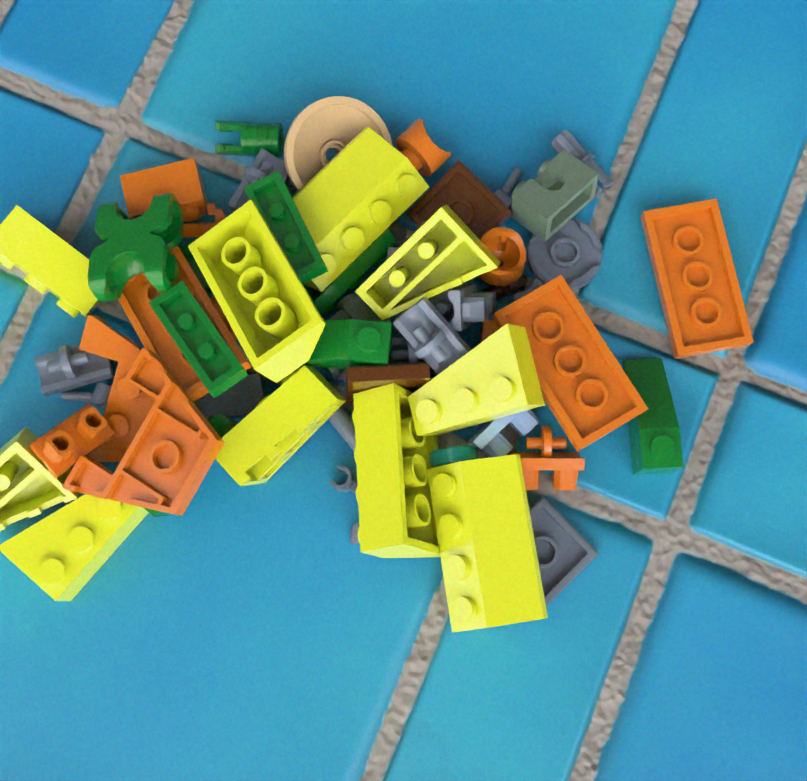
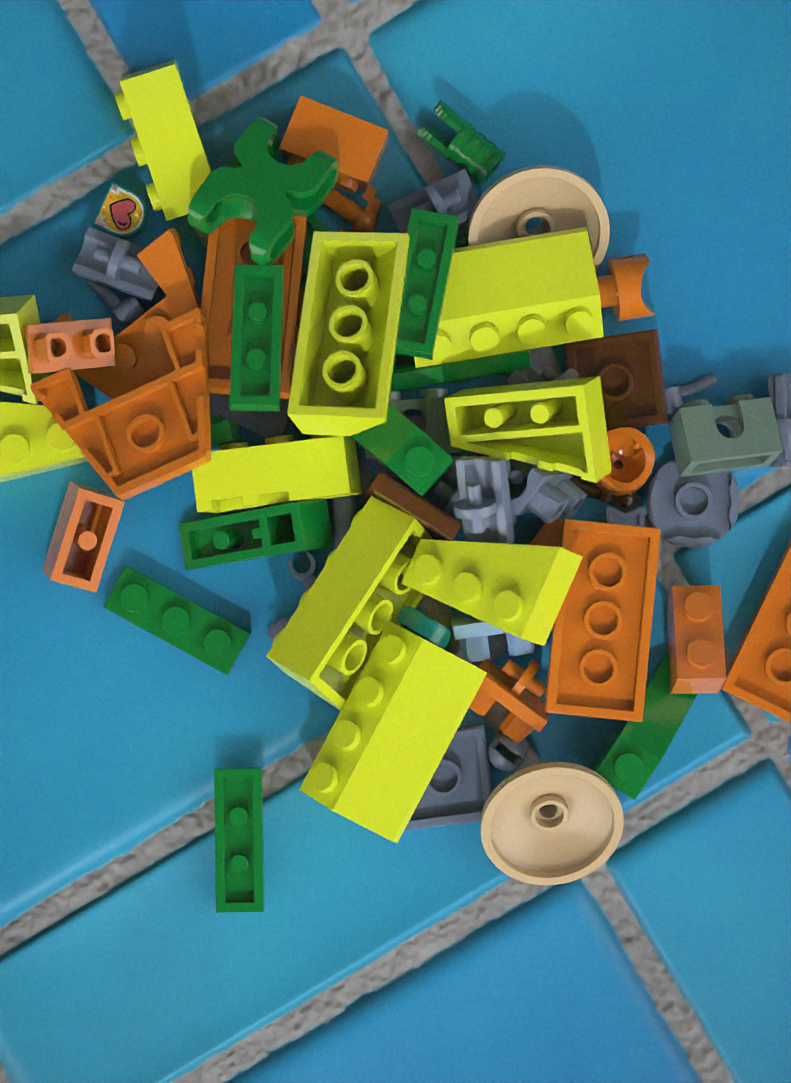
camera: 35 degrees right, 10 degrees up
(52, 333) = (121, 213): none -> tile
(174, 566) = (83, 536): none -> orange brick
(282, 579) = (177, 620): none -> green plate
(294, 479) = (256, 534): none -> green slope
(436, 702) = (239, 839): none -> green plate
(571, 512) = (501, 762): none -> sand blue hinge
(637, 334) = (695, 639): none -> orange brick
(651, 537) = (553, 841): none -> tan dish

